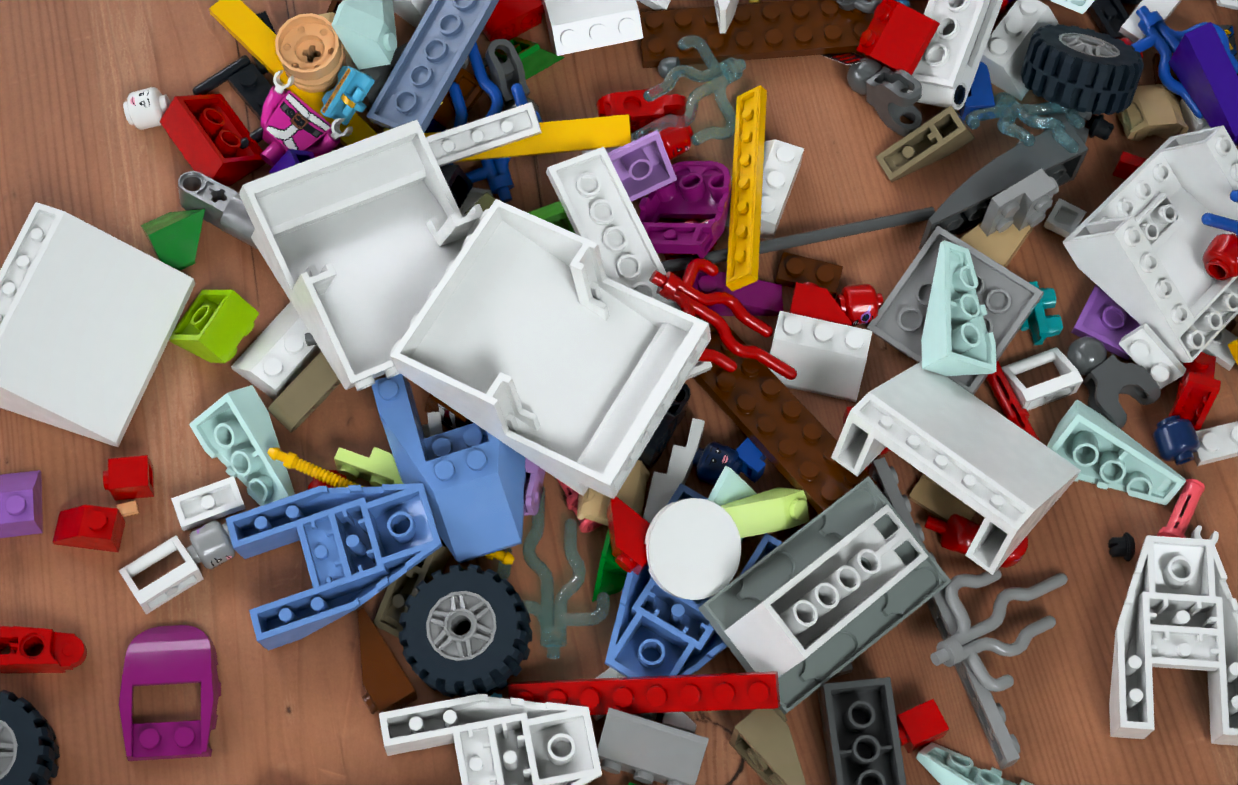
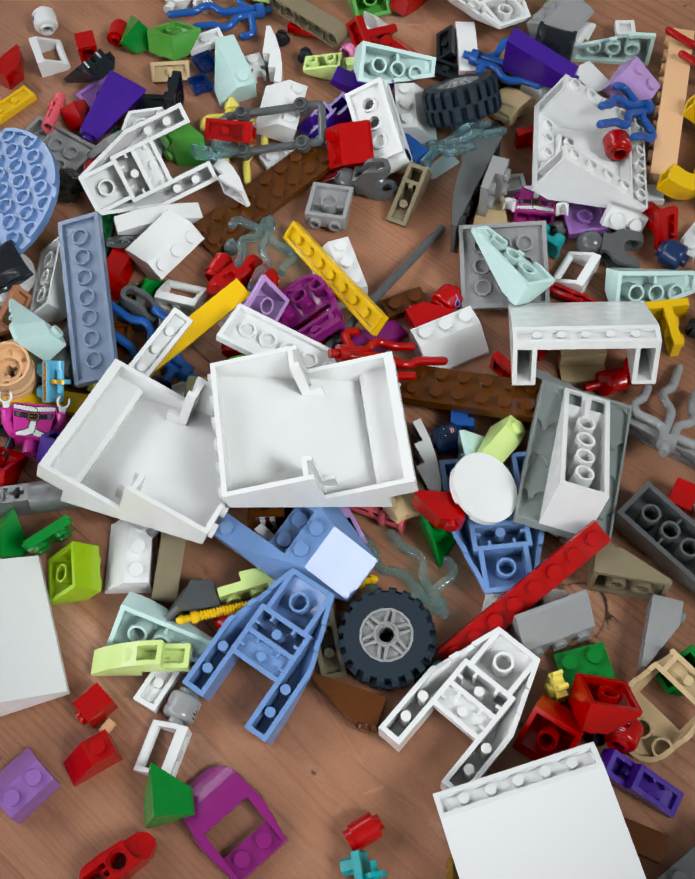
camera: 30 degrees left, 5 degrees down
(125, 623) = (166, 798): none -> green slope
(207, 266) = (41, 541): none -> green plate
(211, 464) = (140, 657): none -> yellowish green slope
(310, 441) = (196, 596): none -> dark grey slope
(553, 95) = (184, 304): none -> white tile
(635, 79) = (217, 264): none -> red brick
(818, 95) = (329, 206): none -> light grey plate
(989, 135) = (442, 165): none -> white sticker
(1054, 265) = (533, 207): none -> torso
(1066, 309) = (557, 227): none -> dark grey hinge
(1105, 504) = (668, 313): none -> yellow bracket

